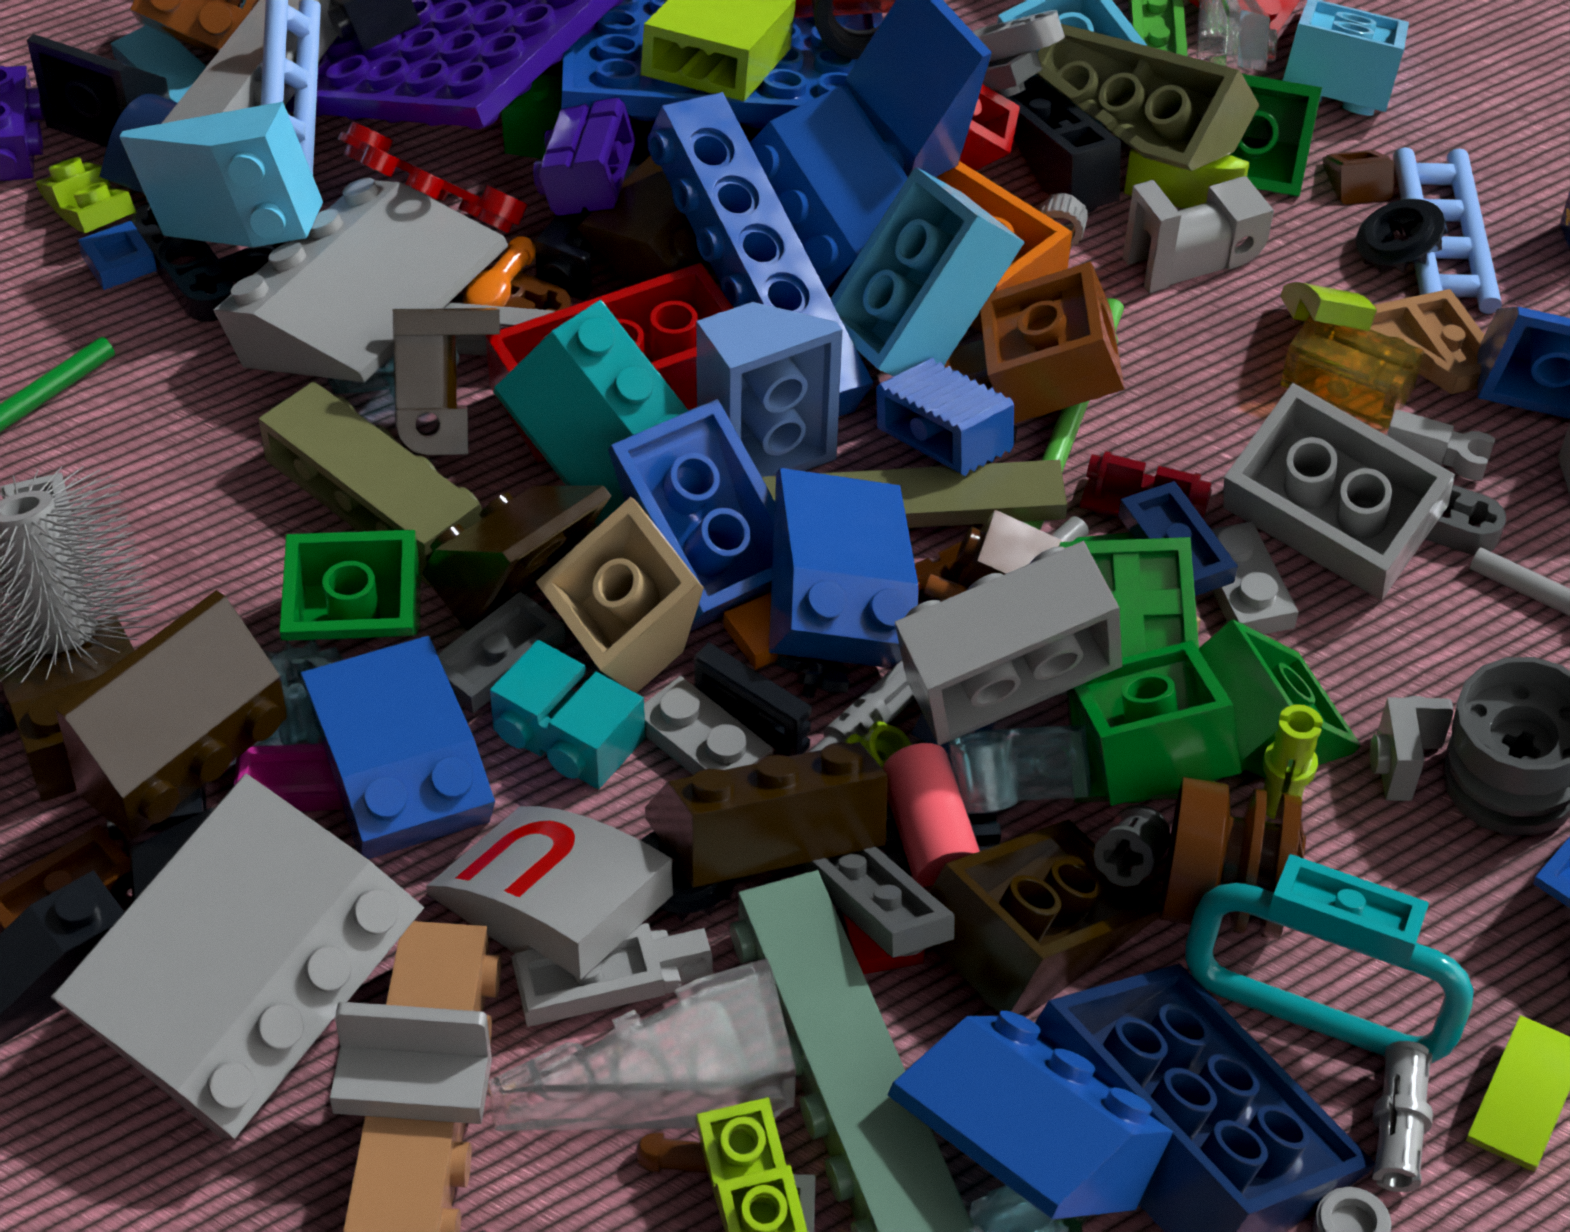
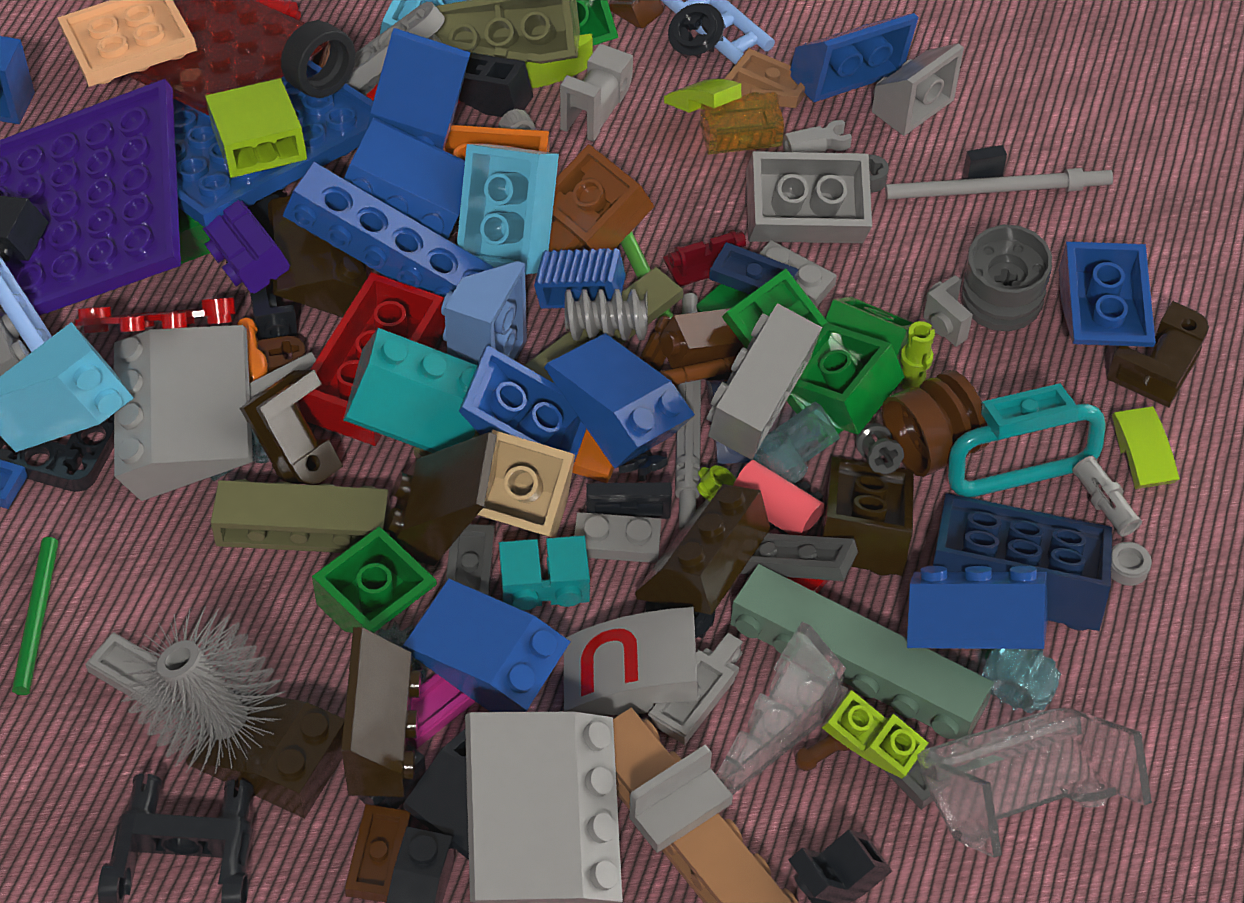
camera: 40 degrees left, 5 degrees up
(929, 470) = (606, 315): none -> light grey piece

